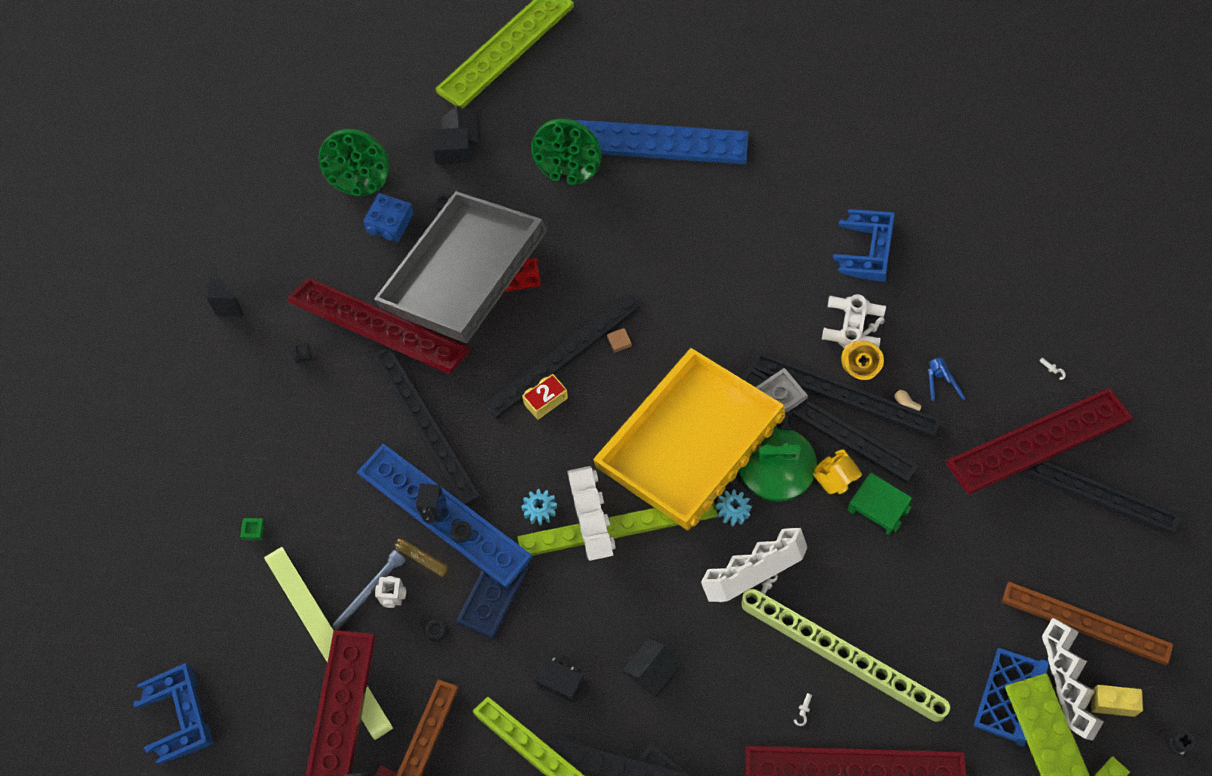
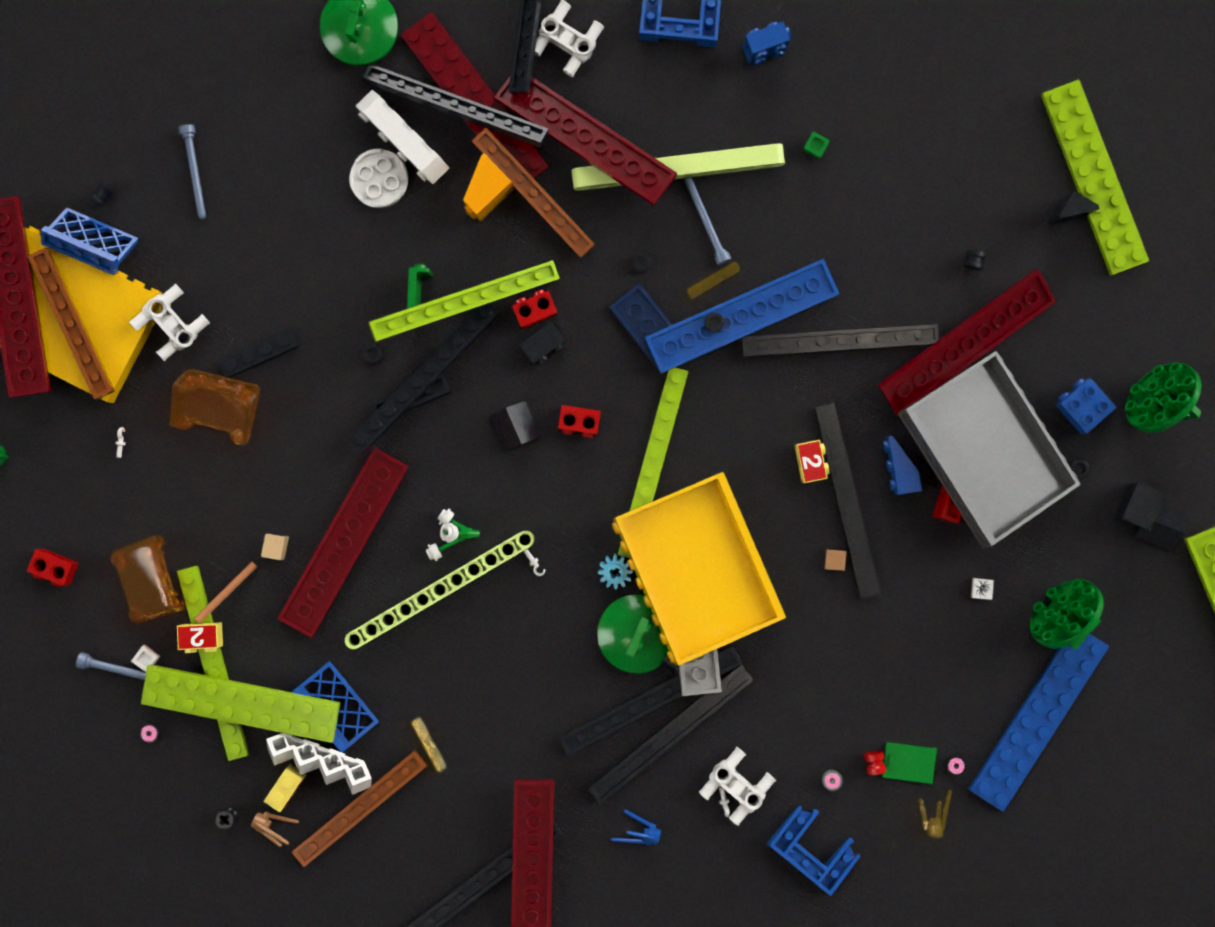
camera: 115 degrees right, 25 degrees up
(170, 615) = (766, 43): none -> blue brick
(183, 301) = (1094, 176): none -> lime plate
(387, 586) = (692, 231): white brick -> none
(431, 503) = (749, 305): black brick -> none
(514, 323) = (903, 472): none -> blue slope
(533, 700) = (537, 315): none -> red brick
(536, 513) = (700, 409): medium azure gear -> none
(580, 224) = (982, 588): none -> white tile
(590, 515) = (673, 442): white brick -> none
(610, 609) = (580, 415): none -> red brick
(733, 179) = (955, 765): none -> tile
(750, 570) = (548, 550): white brick -> none
(752, 212) = (909, 762): none -> green container
(769, 232) = (875, 762): none -> red wheel
(787, 664) = (449, 533): none -> white plant
(789, 170) = (936, 825): none -> clear yellow plant
(802, 258) = (832, 780): none -> tile
(804, 709) = (414, 531): white hand -> none
(837, 472) = (596, 678): yellow brick -> none
(869, 367) = (692, 768): yellow brick -> none
(881, 503) = (551, 701): green panel -> none
(904, 399) = (635, 783): tan arm -> none
(988, 592) = (428, 744): none -> clear yellow axle
(1163, 705) = (262, 823): none -> medium nougat plant

